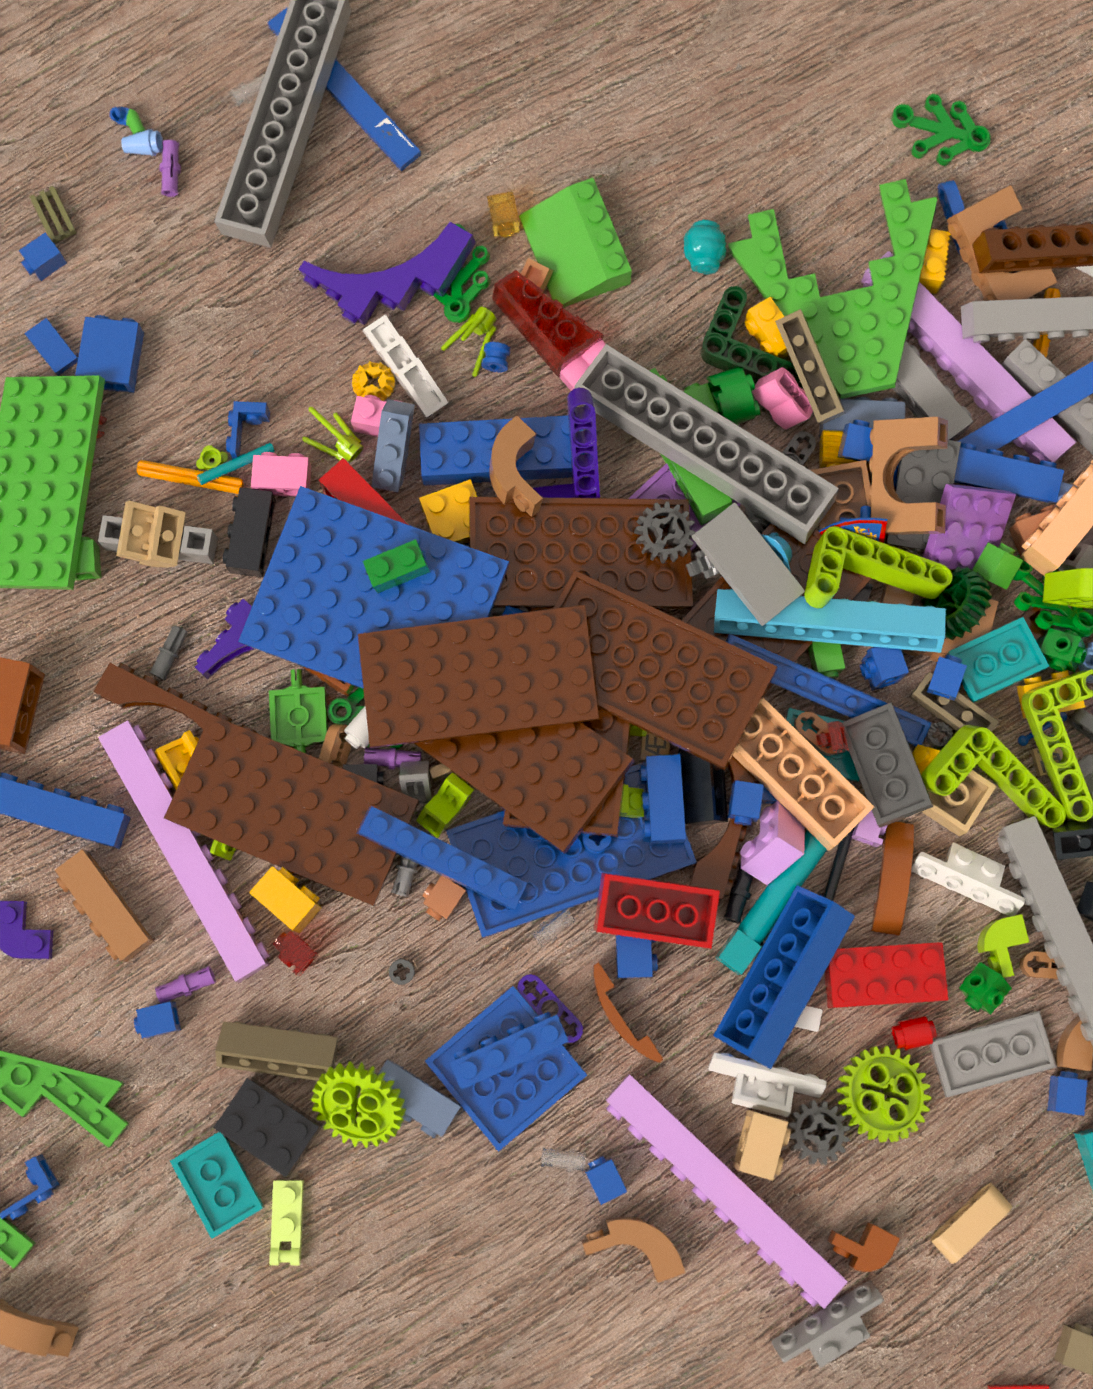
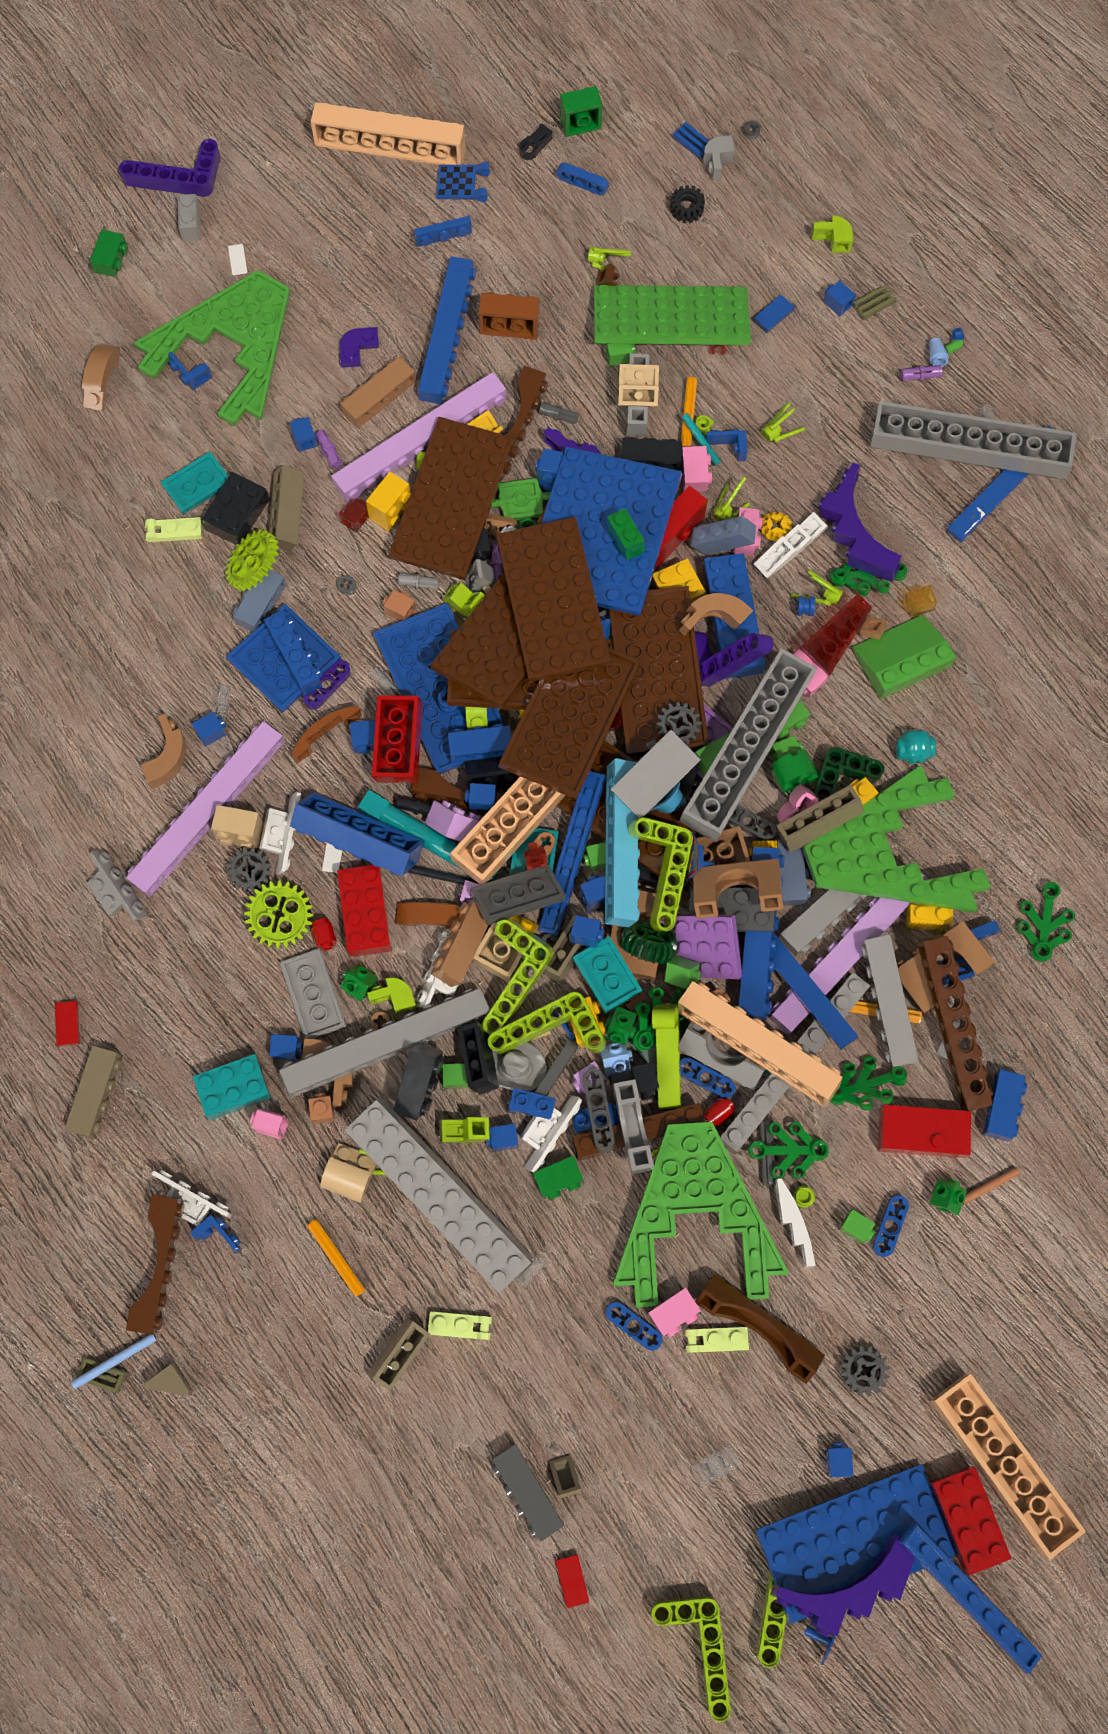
camera: 85 degrees right, 5 degrees down
(111, 351) = (773, 349): blue brick -> none
(233, 369) = (772, 430): none -> lime plant
(264, 669) = (548, 468): none -> blue brick
(441, 858) = (423, 592): blue brick -> none
(871, 1252) = (167, 910): dark orange brick -> none
(947, 846) = (460, 945): none -> medium nougat brick
(971, 1223) = (190, 982): tan beam -> none

